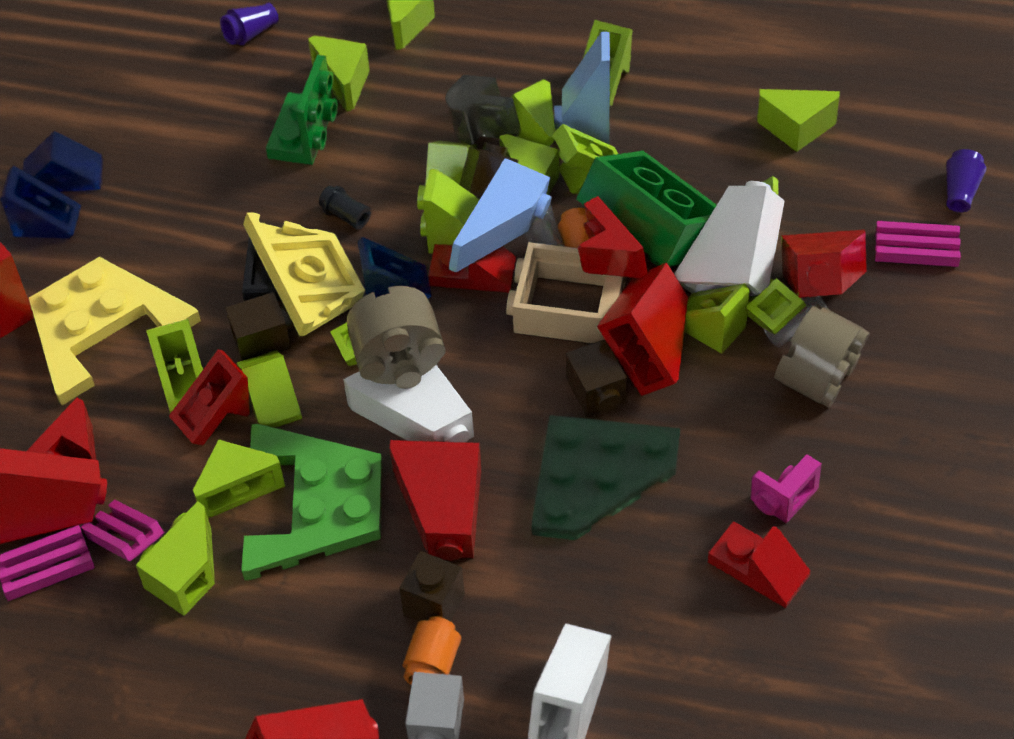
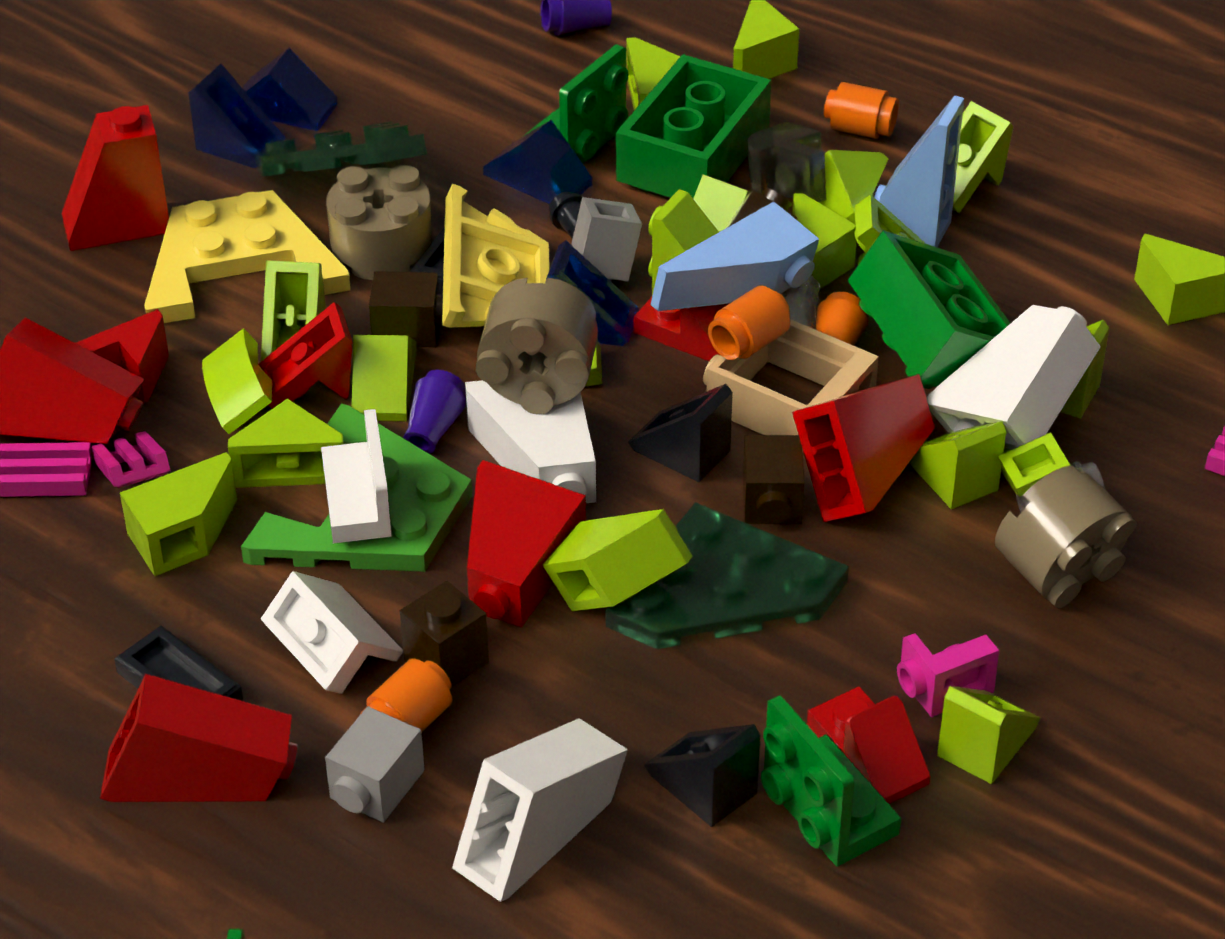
camera: 20 degrees right, 10 degrees down
(160, 197) = (379, 144): none -> clear green plate
(165, 435) = (236, 381): none -> lime slope
(200, 258) = (379, 219): none -> dark tan brick
(247, 691) = (171, 659): none -> black tile
(291, 167) = (540, 165): none -> clear blue slope
(310, 493) = (357, 487): none -> white panel
(323, 403) = (435, 407): none -> dark purple cone
(341, 616) = (326, 630): none -> white panel
(380, 217) = (607, 236): none -> light grey brick
(396, 102) = (691, 127): none -> green brick
(506, 43) = (861, 110): none -> orange brick
(515, 360) = (690, 434): none -> black slope
(524, 486) = (615, 558): none -> lime slope
(531, 263) = (749, 323): none -> orange brick
(610, 245) = (854, 334): red slope -> none
(663, 623) = (711, 770): none -> black slope
(750, 612) = (822, 788): none -> green bracket
(823, 261) = (1130, 437): red slope -> none
(832, 525) = (982, 731): none -> lime slope

